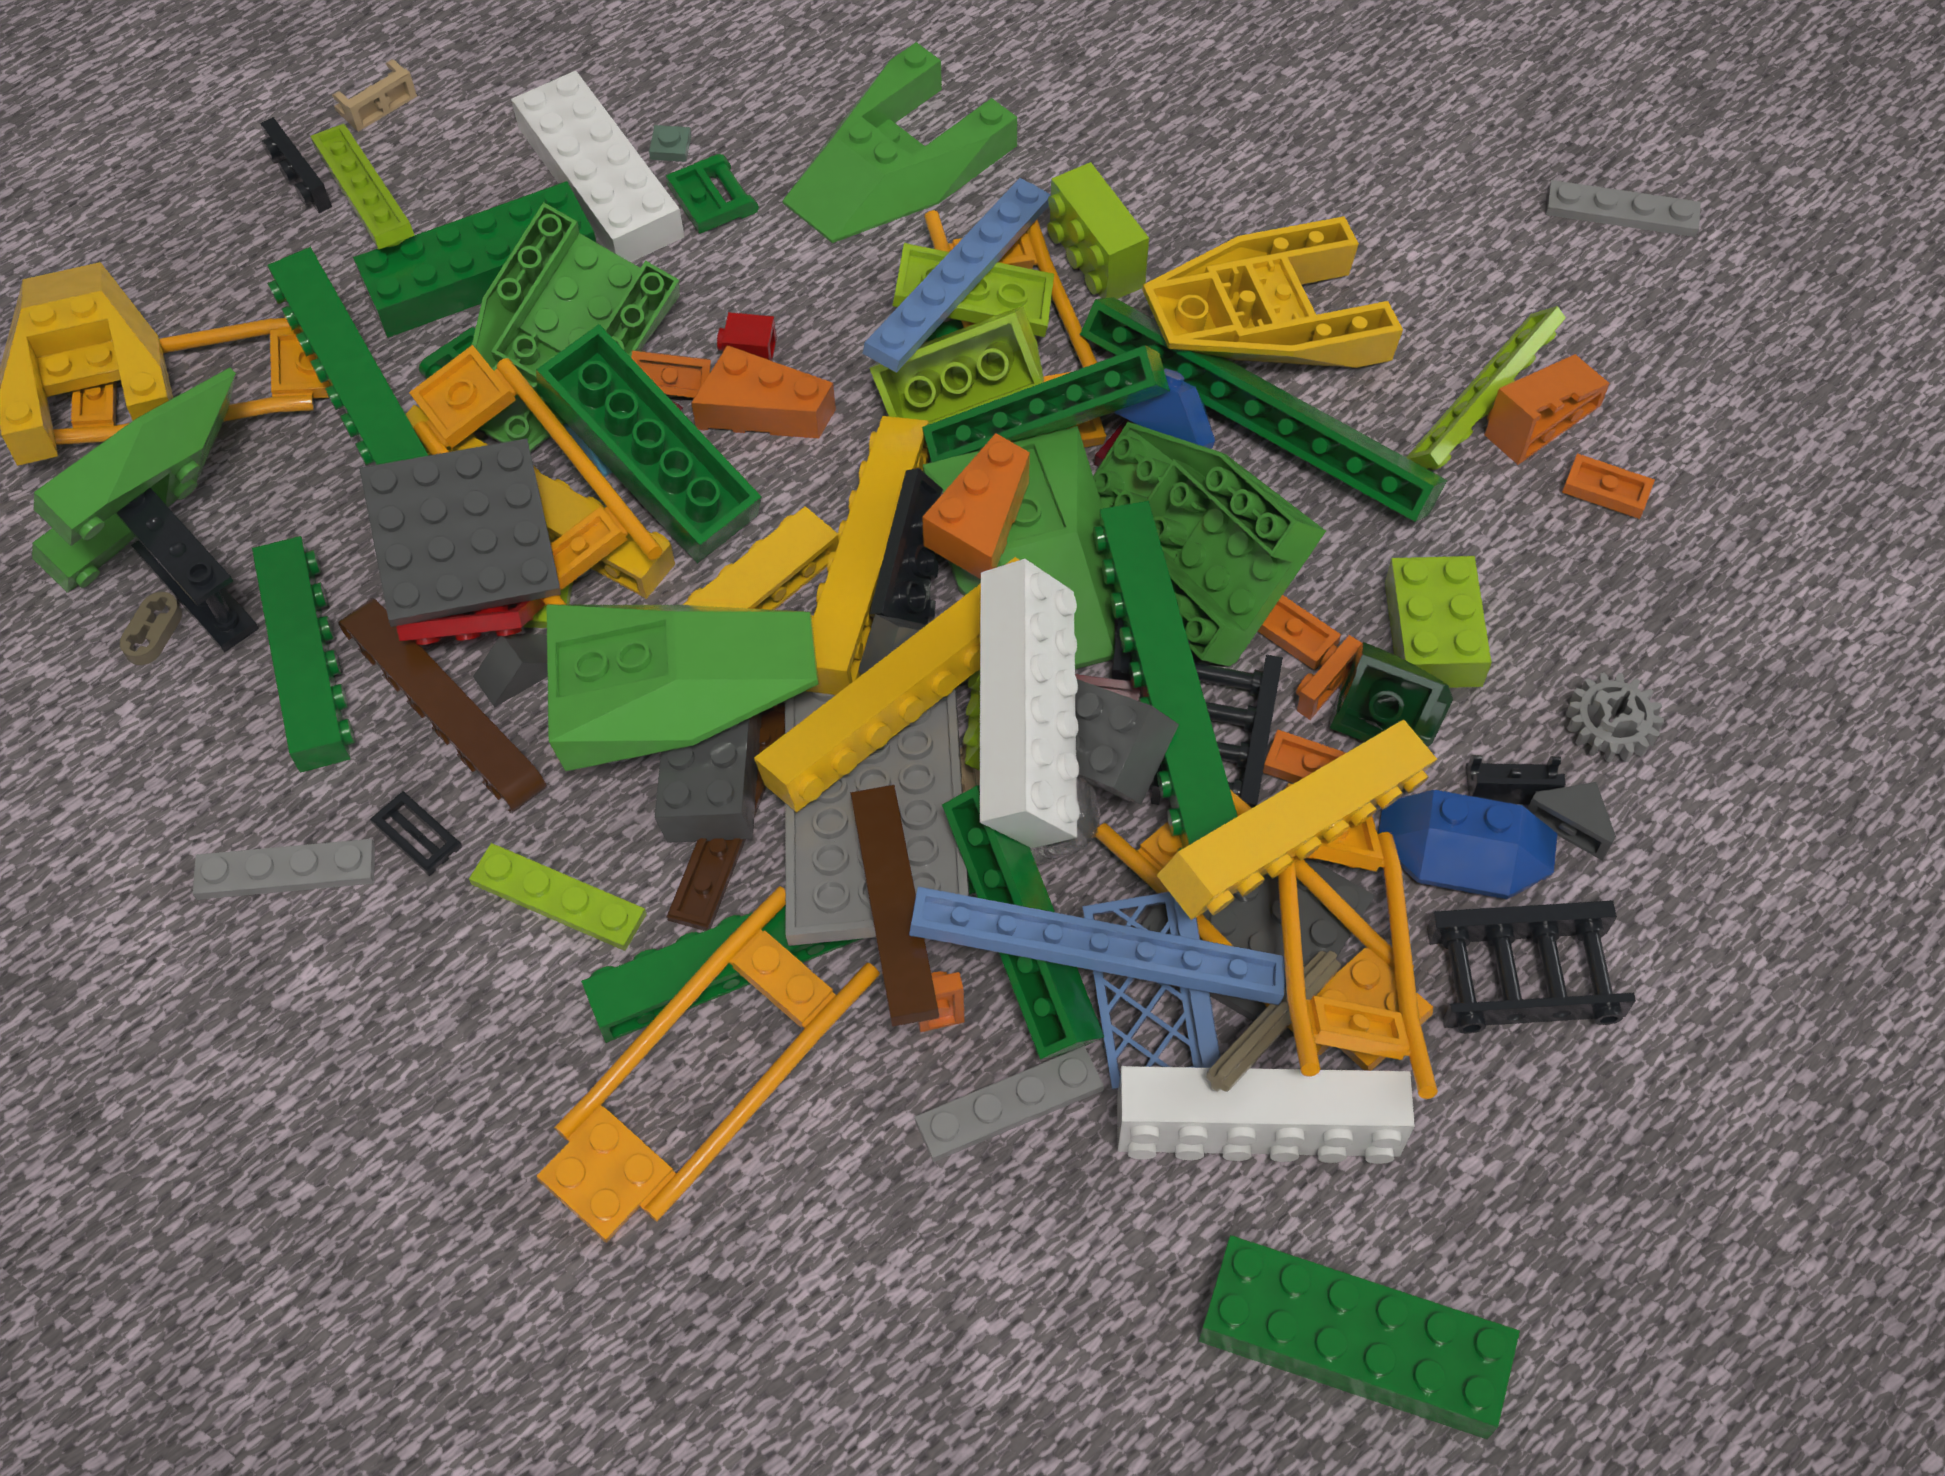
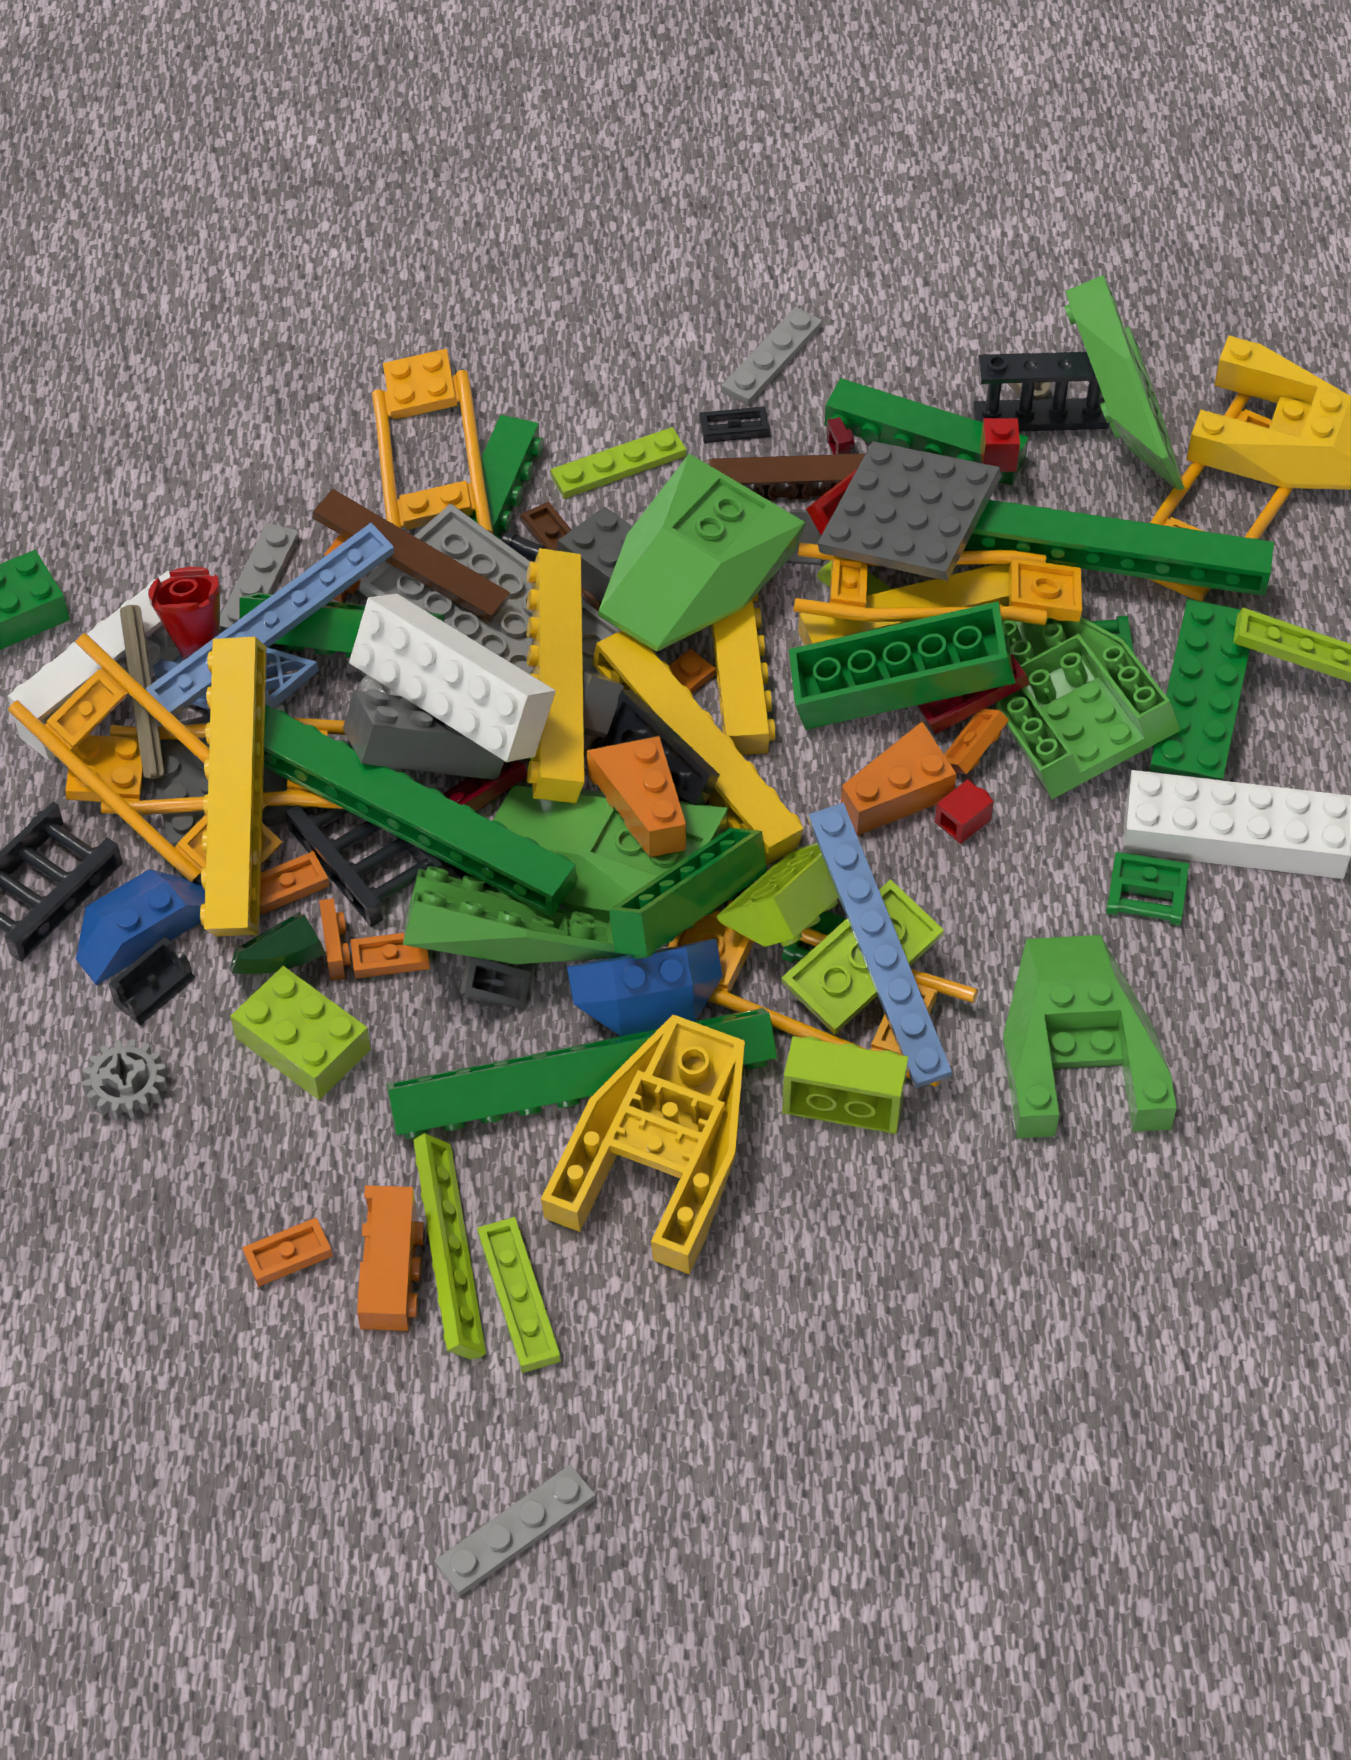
camera: 130 degrees right, 5 degrees down
(296, 538) = (1000, 443): none -> red brick
(372, 714) = (838, 437): none -> dark red plate
(670, 143) = (1233, 900): sand green plate -> none
(749, 885) = (521, 545): none -> black pin
(1148, 1008) = (188, 607): none -> red cone
(1469, 325) = (518, 1295): none -> lime plate
(1576, 816) = (86, 990): dark grey slope -> none

